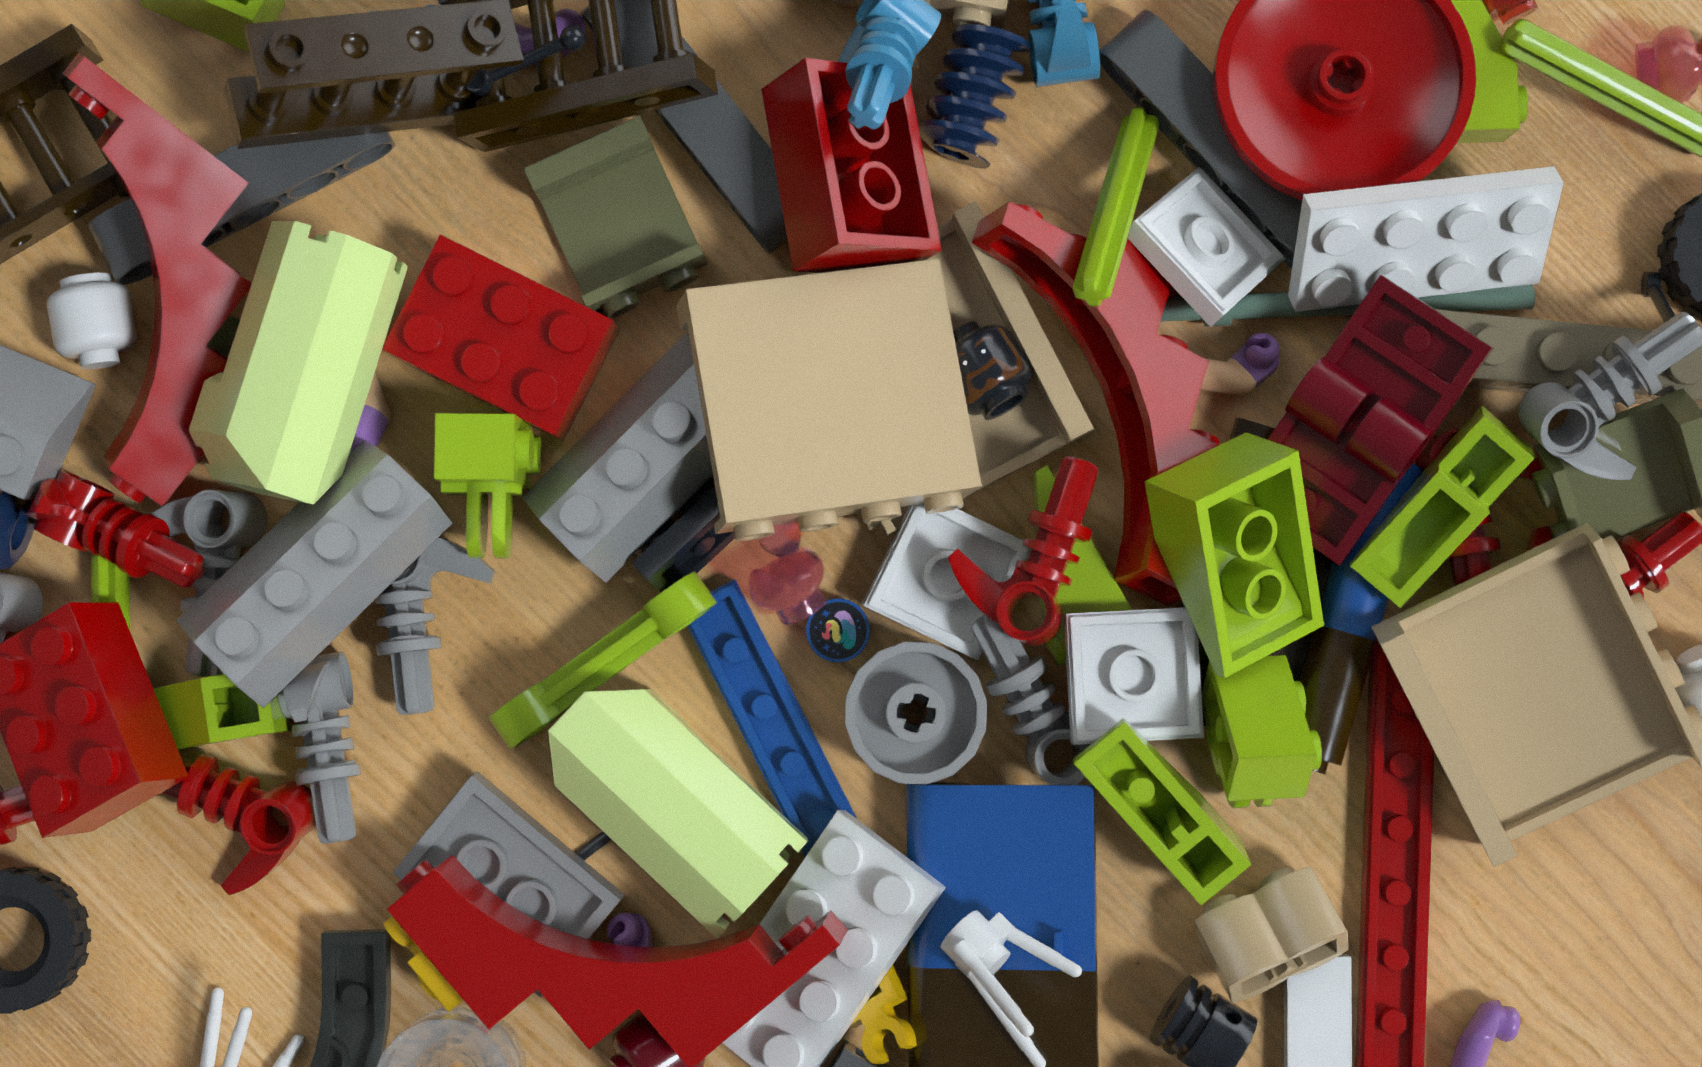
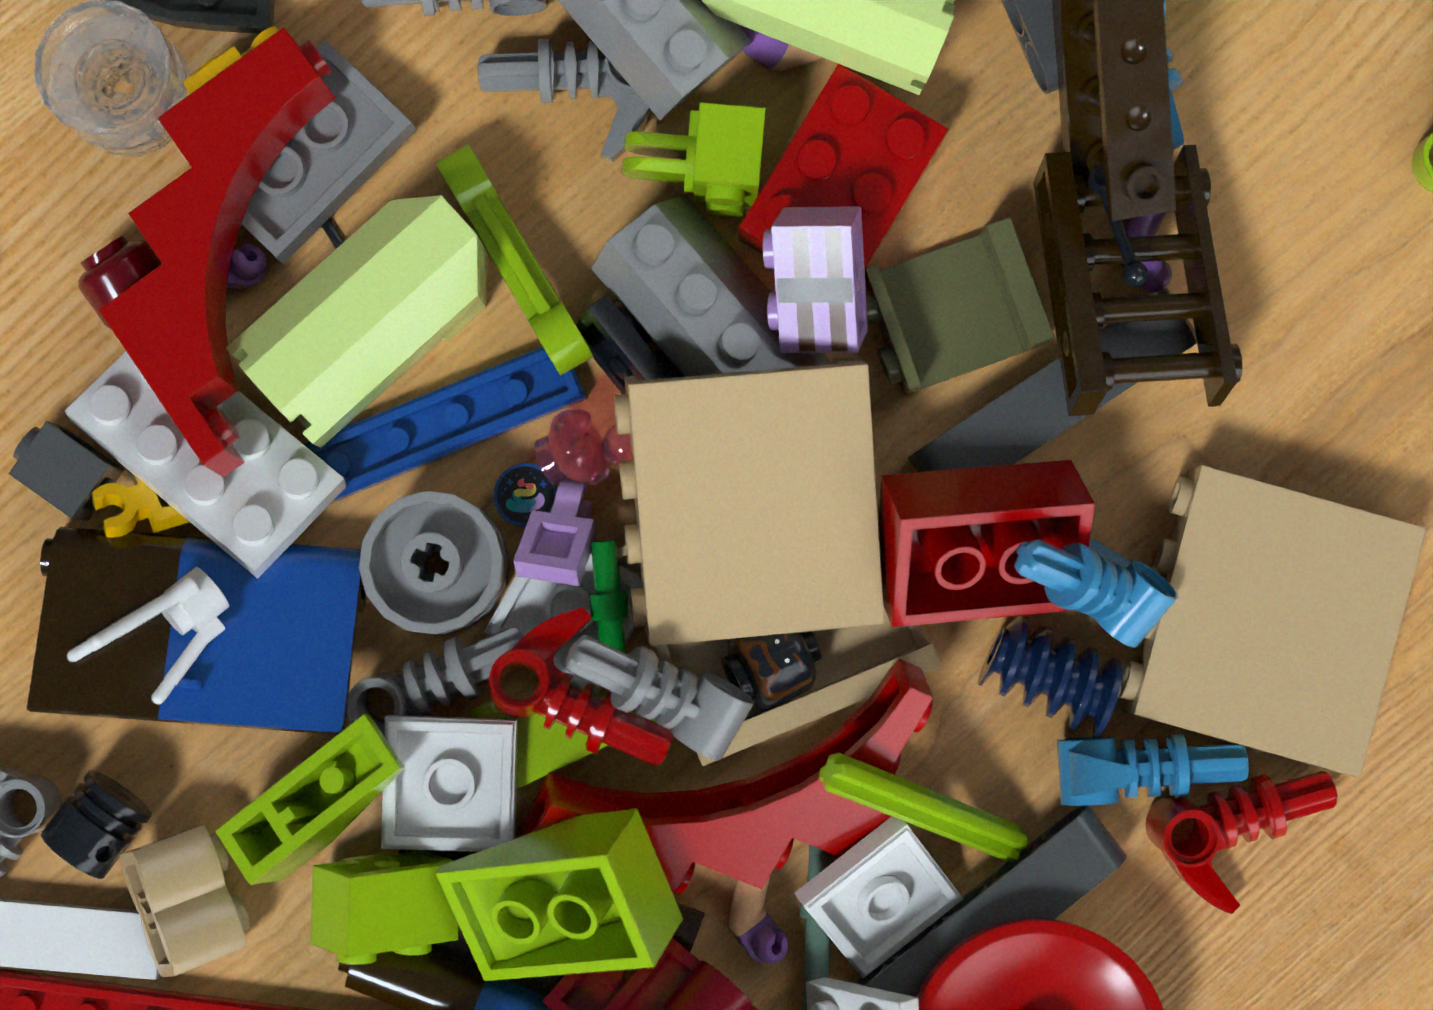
camera: 90 degrees right, 0 degrees up
(603, 349) = (817, 279): none -> lavender brick
(884, 587) = (558, 542): none -> lavender plate
(943, 533) = (609, 602): none -> green bar
(1039, 435) = (696, 708): none -> light grey piece

